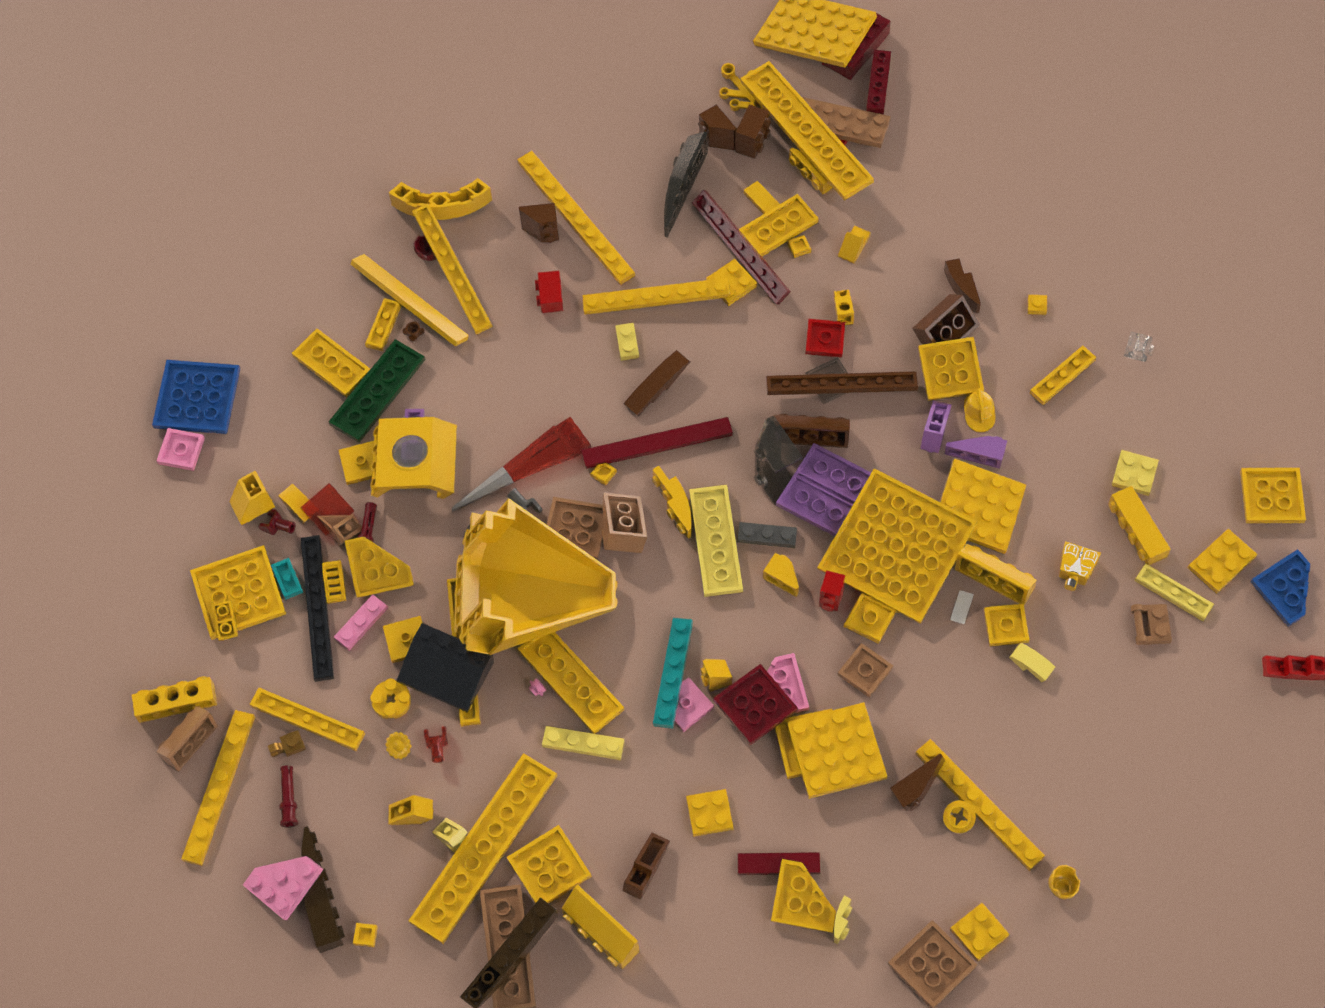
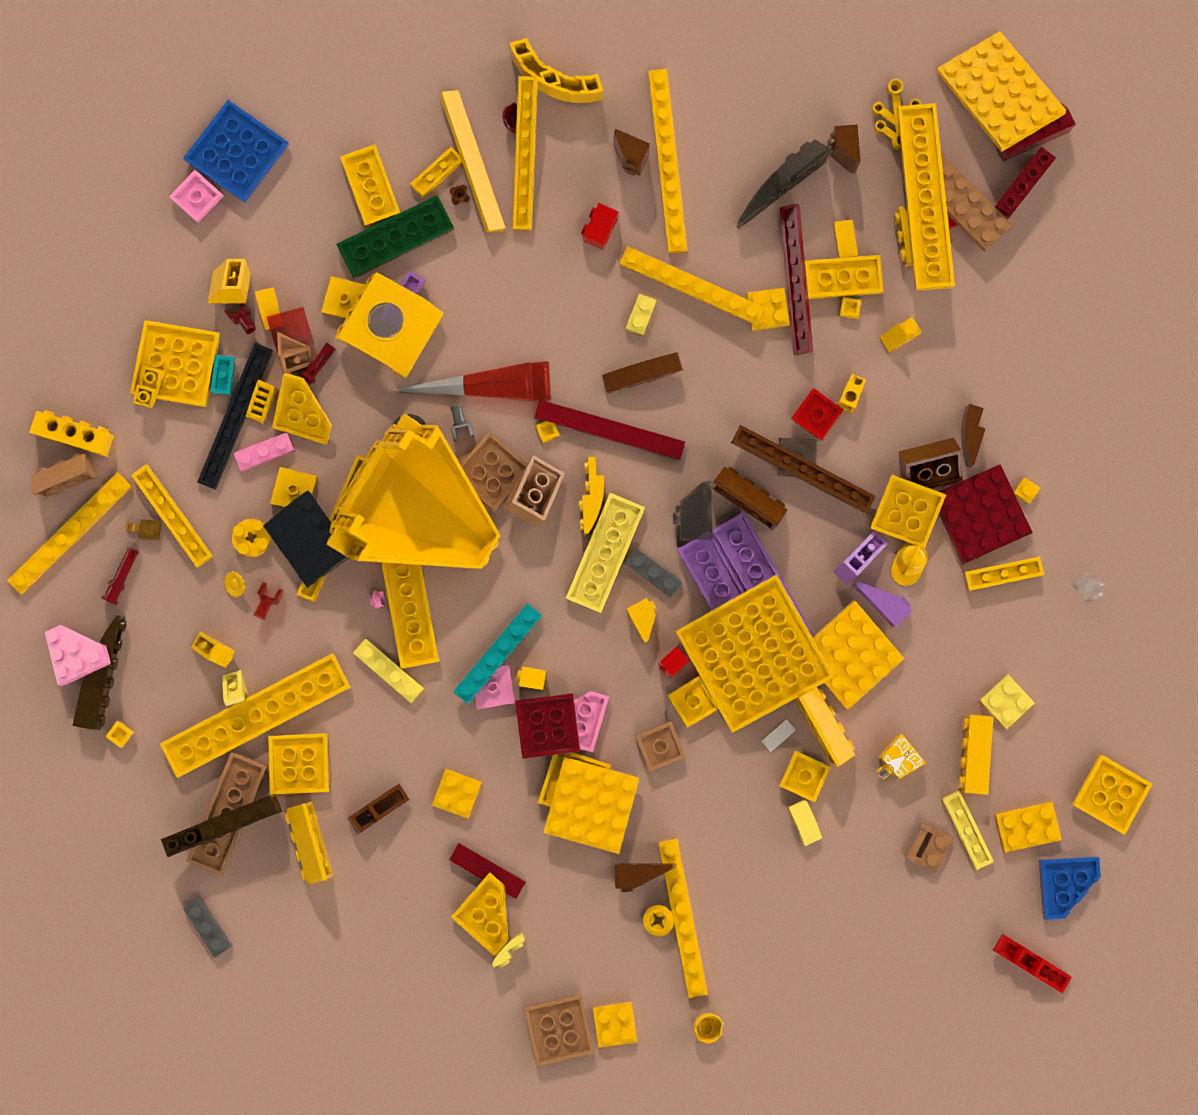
camera: 25 degrees right, 20 degrees up
(752, 132) = (876, 168): reddish brown brick -> none
(1015, 341) = (982, 514): none -> dark red plate

